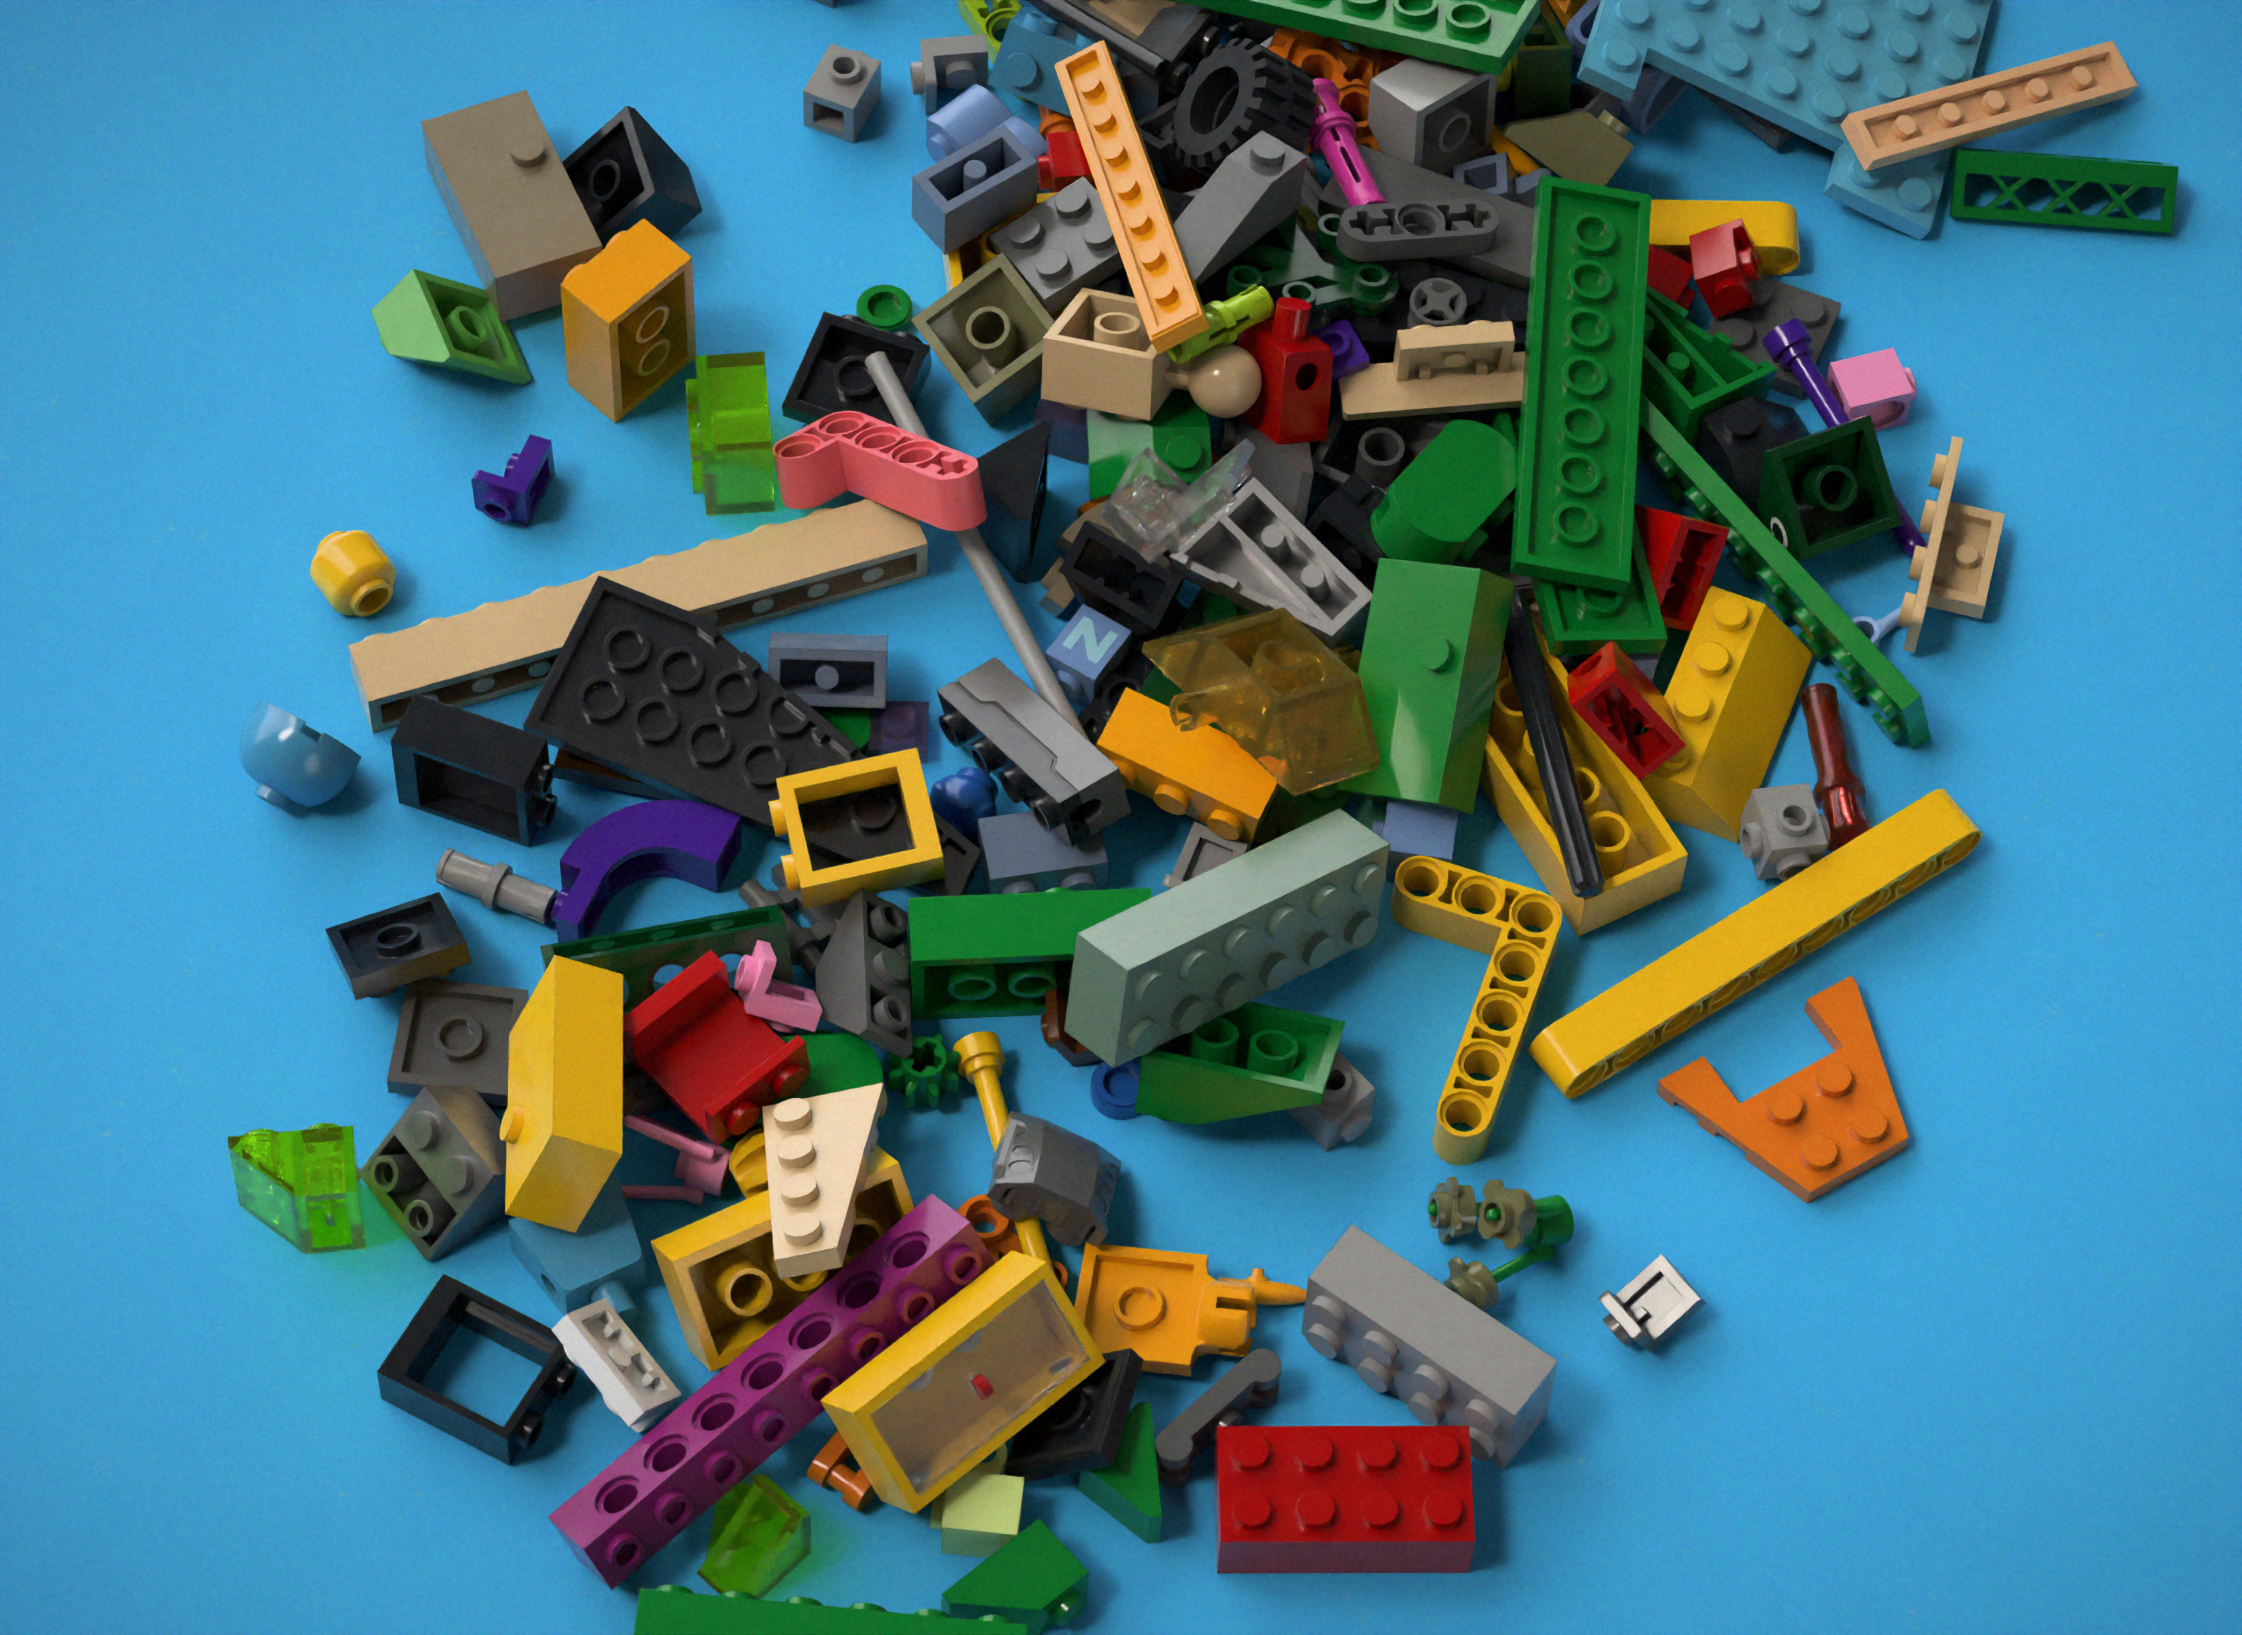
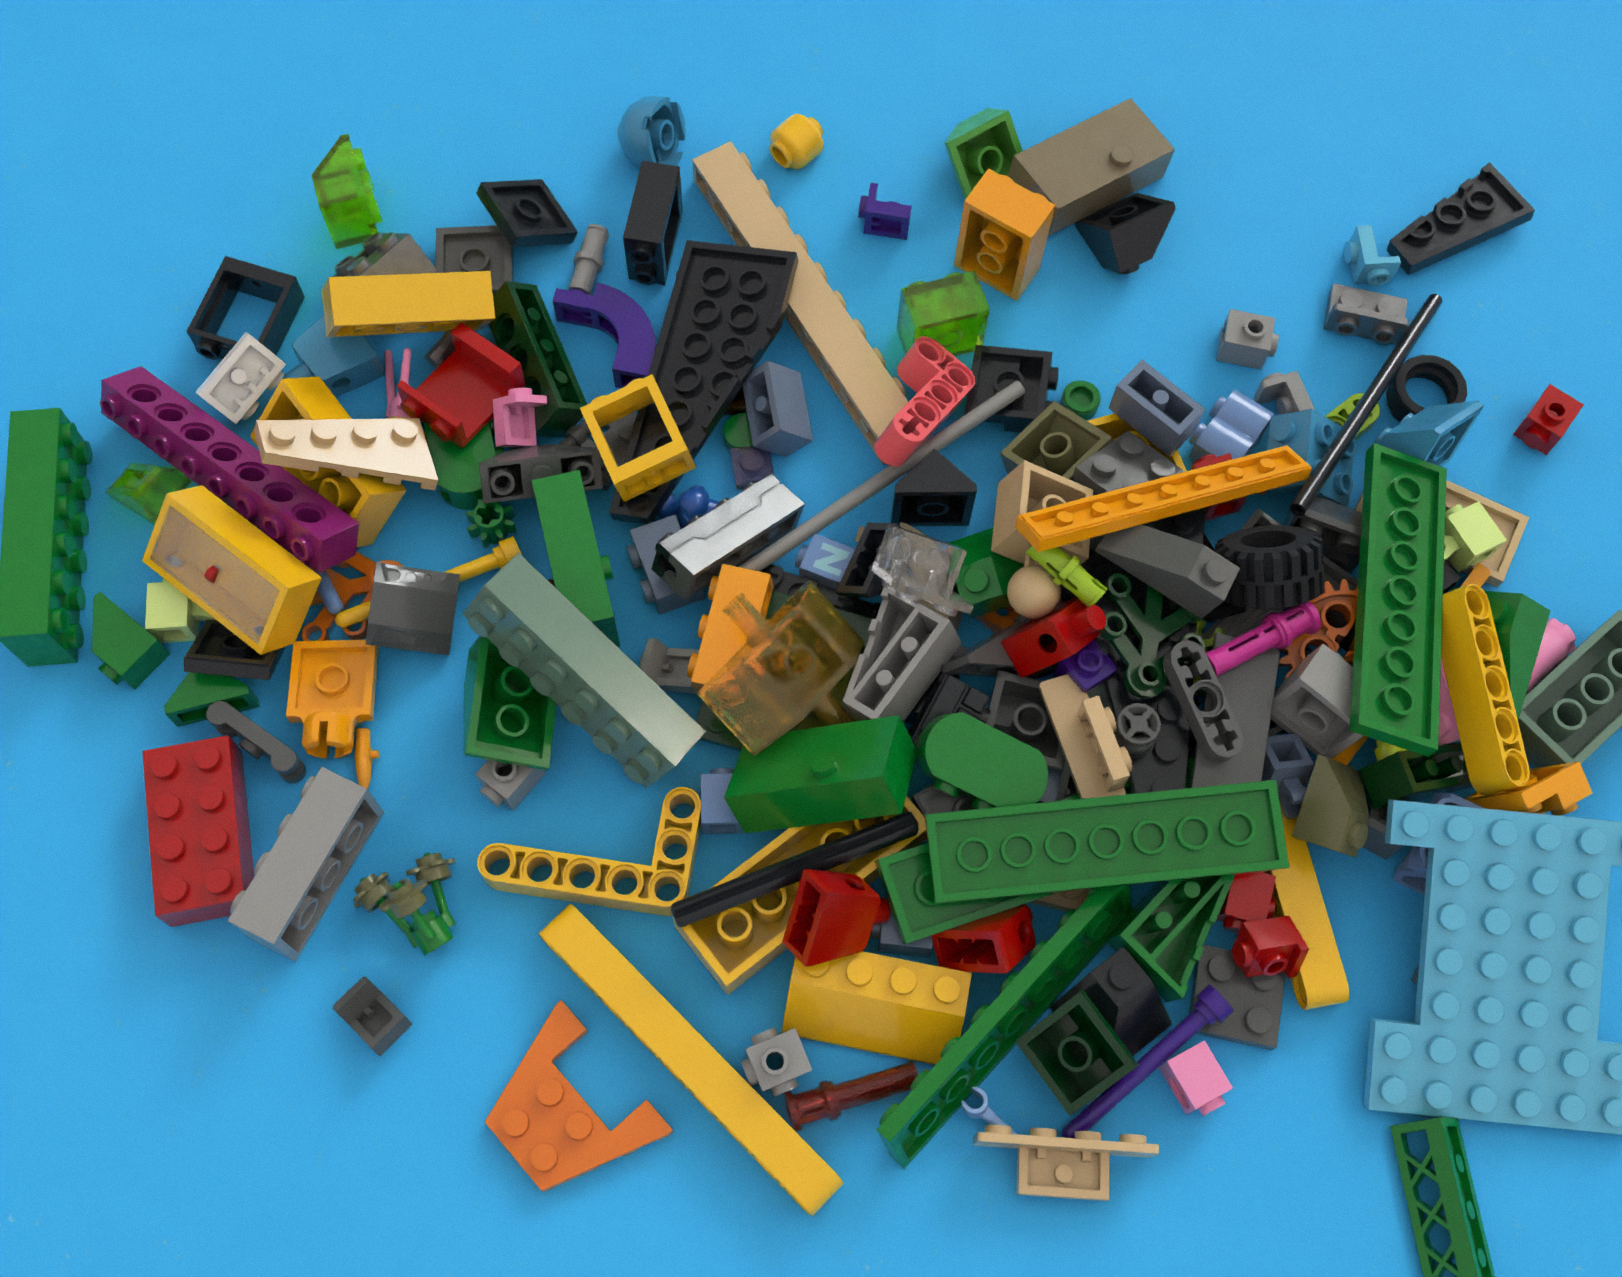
camera: 80 degrees right, 10 degrees up
(1988, 105) = (1496, 1140): light nougat plate -> none

